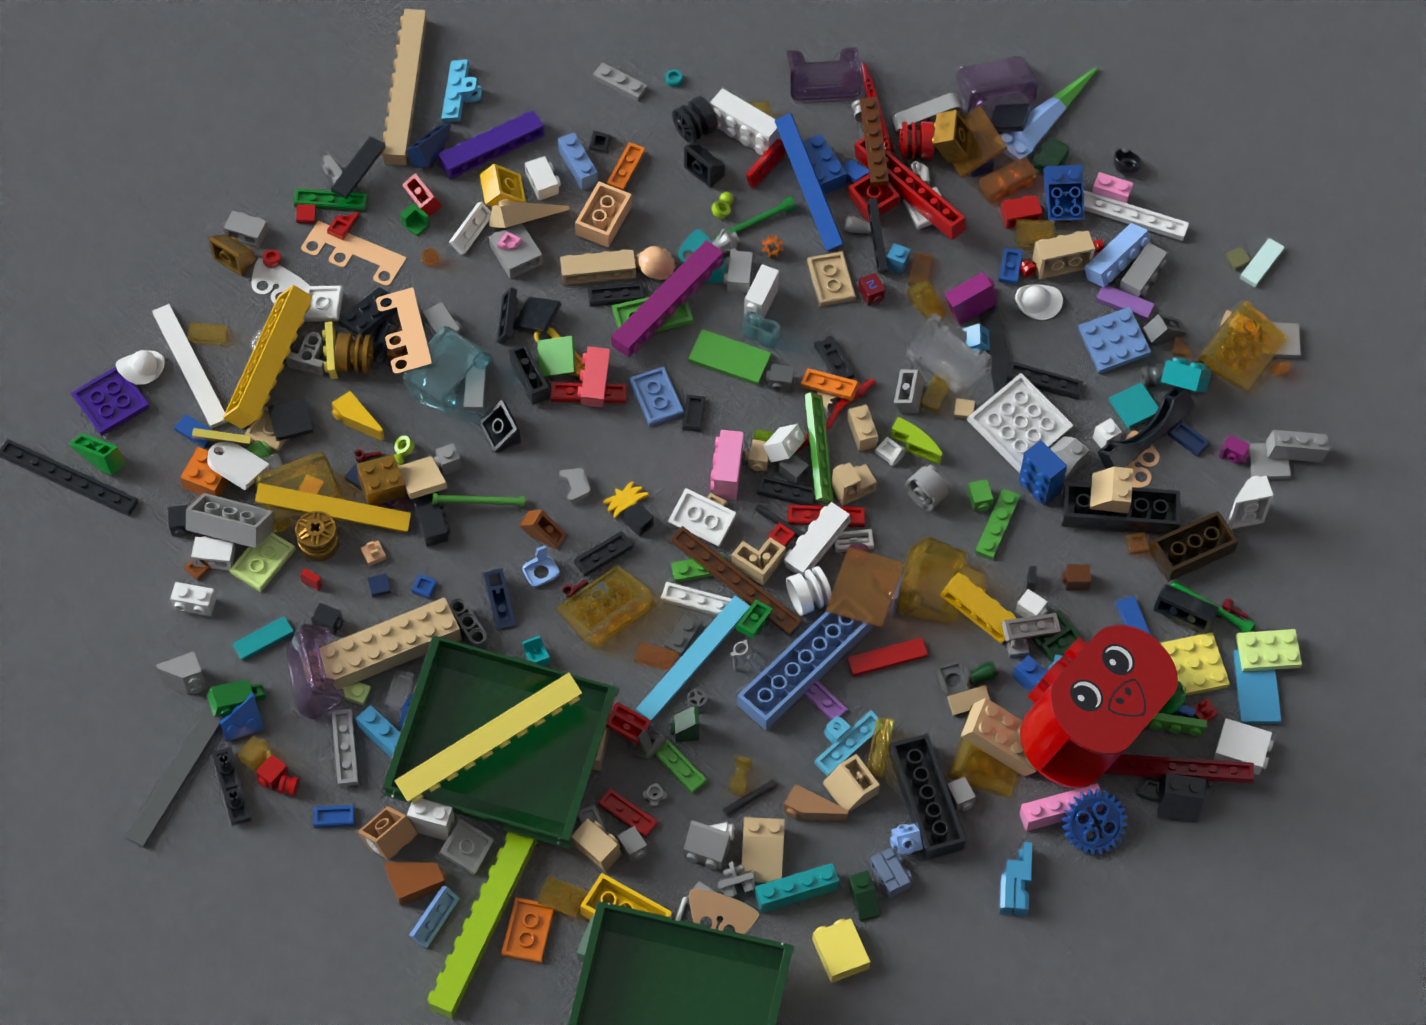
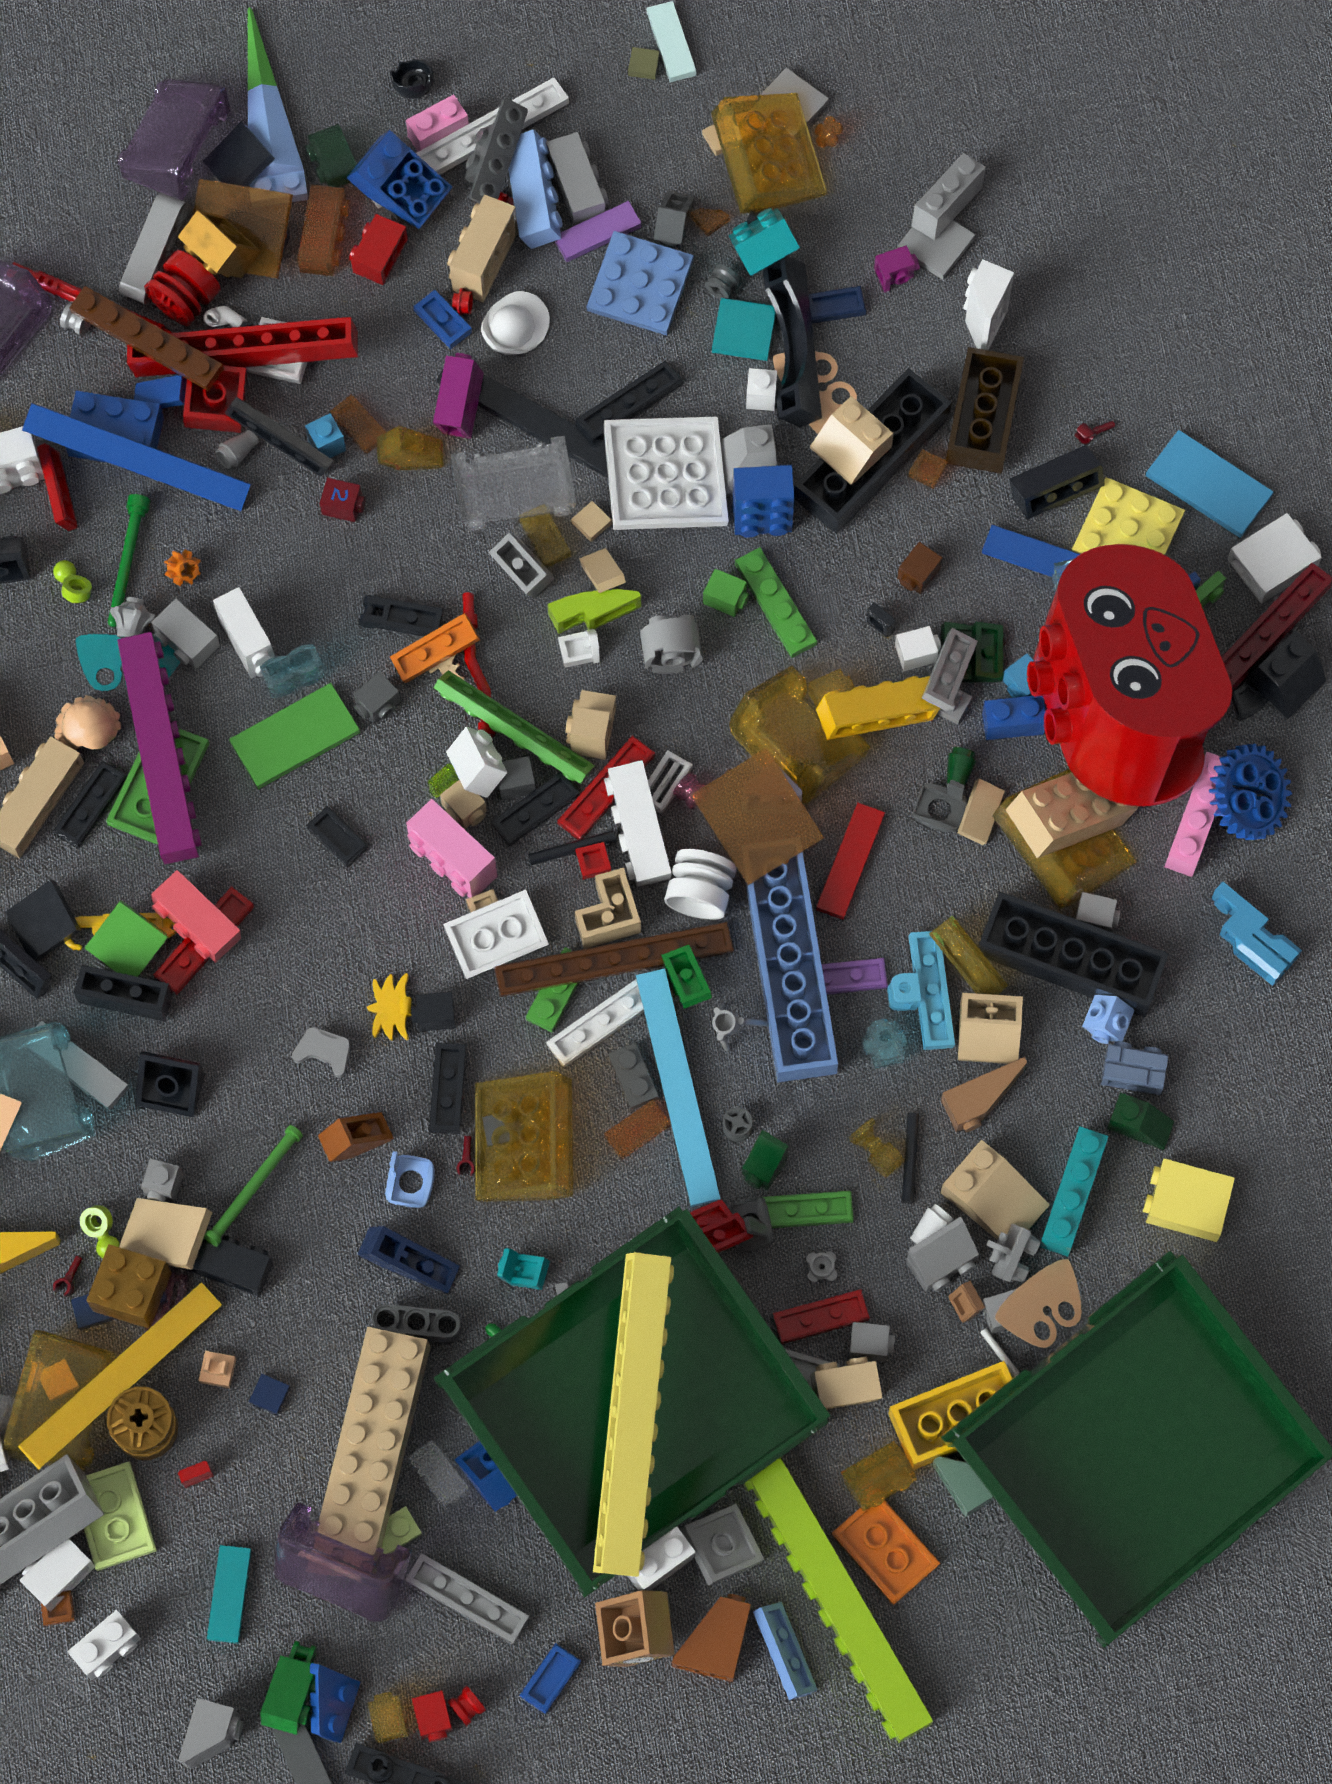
camera: 50 degrees left, 10 degrees up
(328, 617) = (270, 1493): black brick -> none
(378, 730) = (490, 1537): dark azure brick -> none
(424, 586) = (316, 1339): blue tile -> none
(656, 396) = (276, 863): medium blue tile -> none
(692, 876) = (966, 1302): none -> medium nougat tile
(799, 739) = (884, 1043): none -> clear light blue brick
(831, 279) = (283, 535): tan tile -> none
(862, 428) = (525, 656): tan brick -> none
(939, 430) = (602, 570): none -> tan tile
(978, 338) = (513, 432): dark azure brick -> none
(1031, 231) = (422, 256): clear yellow brick -> none
(1120, 222) = (494, 151): none -> dark grey bracket
(1205, 710) = (1197, 561): red tile -> none
(1244, 625) = (1126, 435): green piece -> none
(1268, 650) = (1178, 434): yellowish green plate -> none

